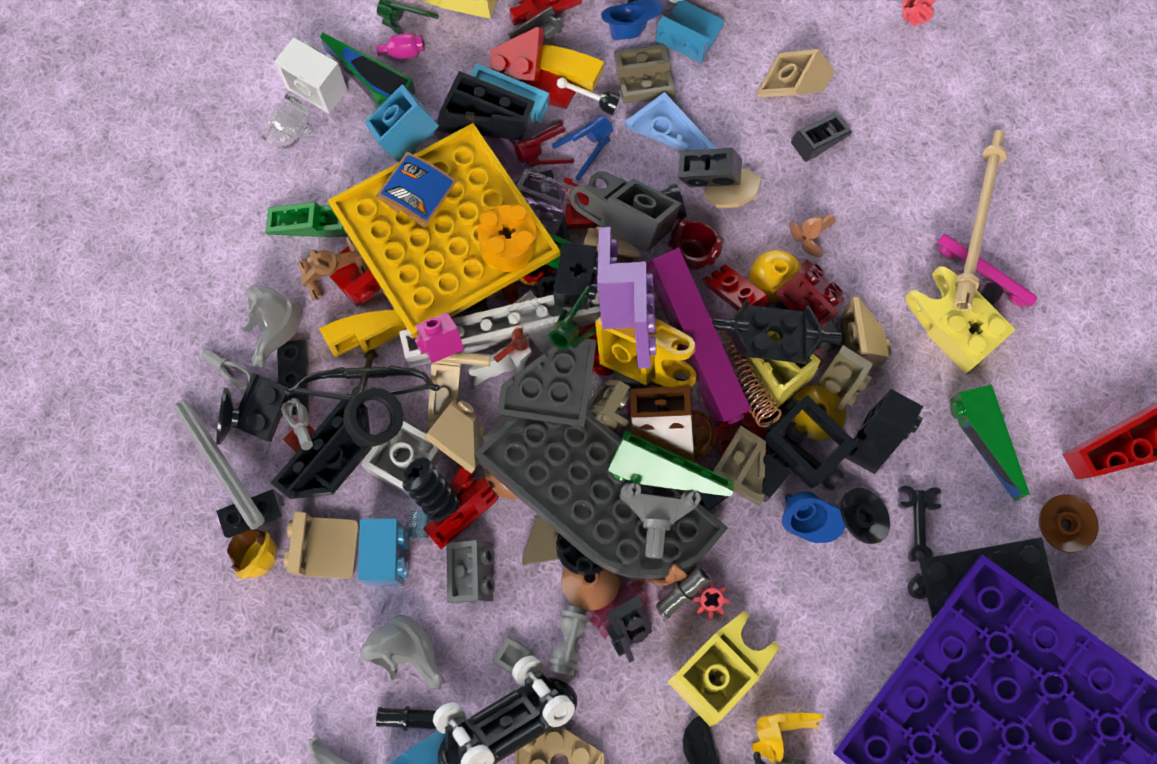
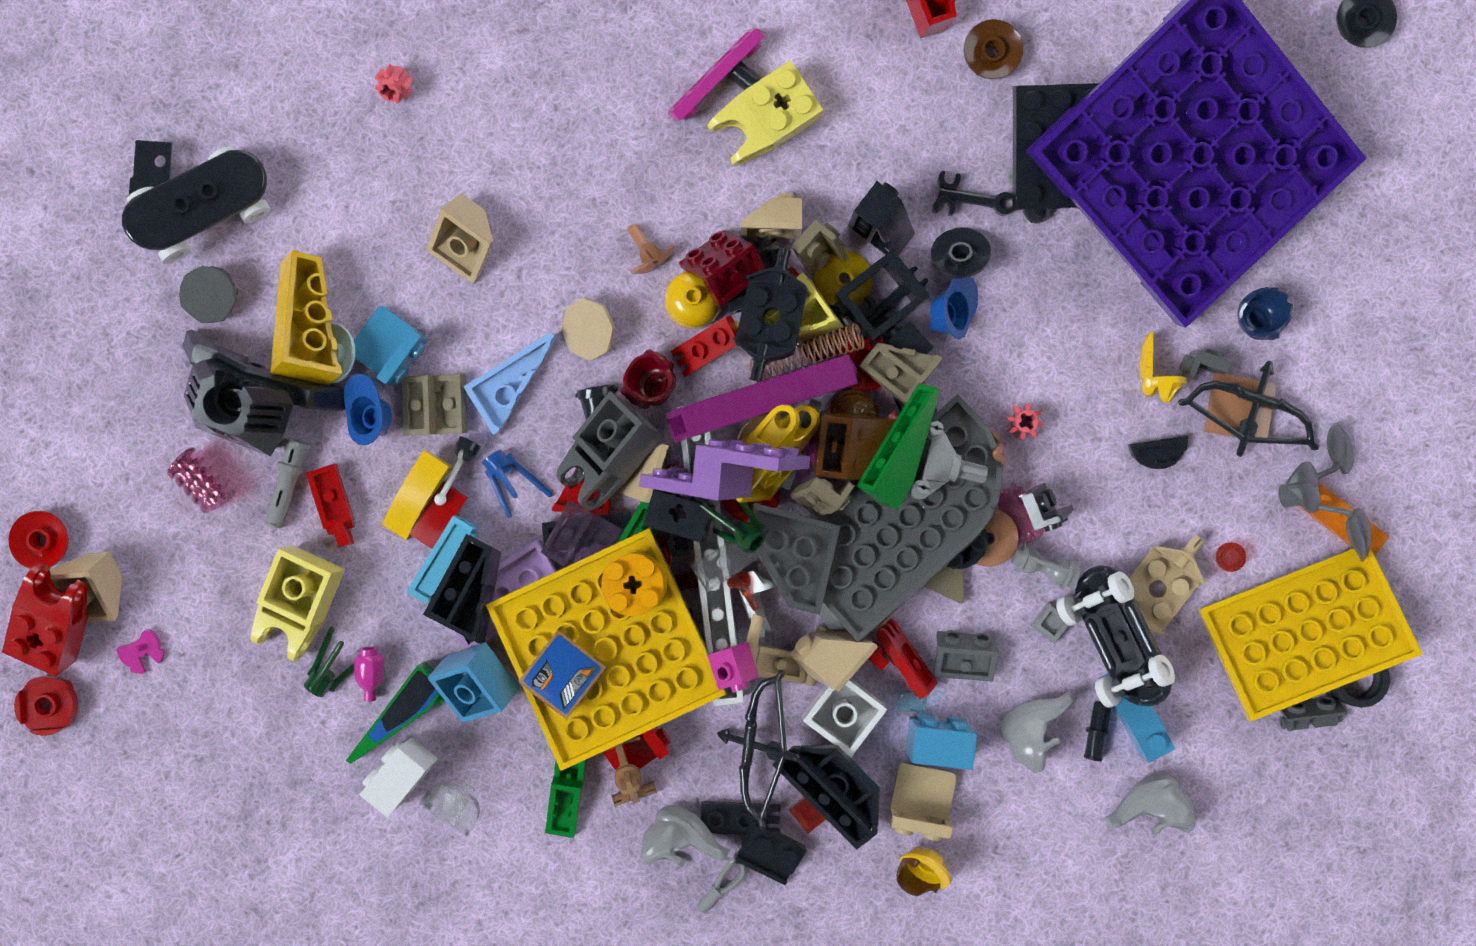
camera: 80 degrees left, 15 degrees up
(219, 465) = (830, 900): light grey axle -> none
(227, 416) = (779, 888): black dish -> none
(233, 522) = (884, 871): black bracket -> none
(301, 428) = (804, 814): light grey piece -> none
(362, 329) = (700, 743): yellow slope -> none
(391, 403) = (828, 727): black tyre -> none
(430, 490) = (889, 689): black piece -> none
(520, 56) = (404, 544): wing -> none
(530, 148) = (516, 545): dark red plant -> none
(545, 20) = (375, 530): dark grey hinge -> none
(683, 592) = (1014, 447): dark grey pin -> none
(710, 167) = (565, 351): black brick -> none
(730, 662) = (1093, 408): light yellow brick -> none
(809, 147) = (543, 237): black slope -> none
(968, 282) = (735, 101): tan bar -> none
(986, 429) = (877, 113): green slope -> none

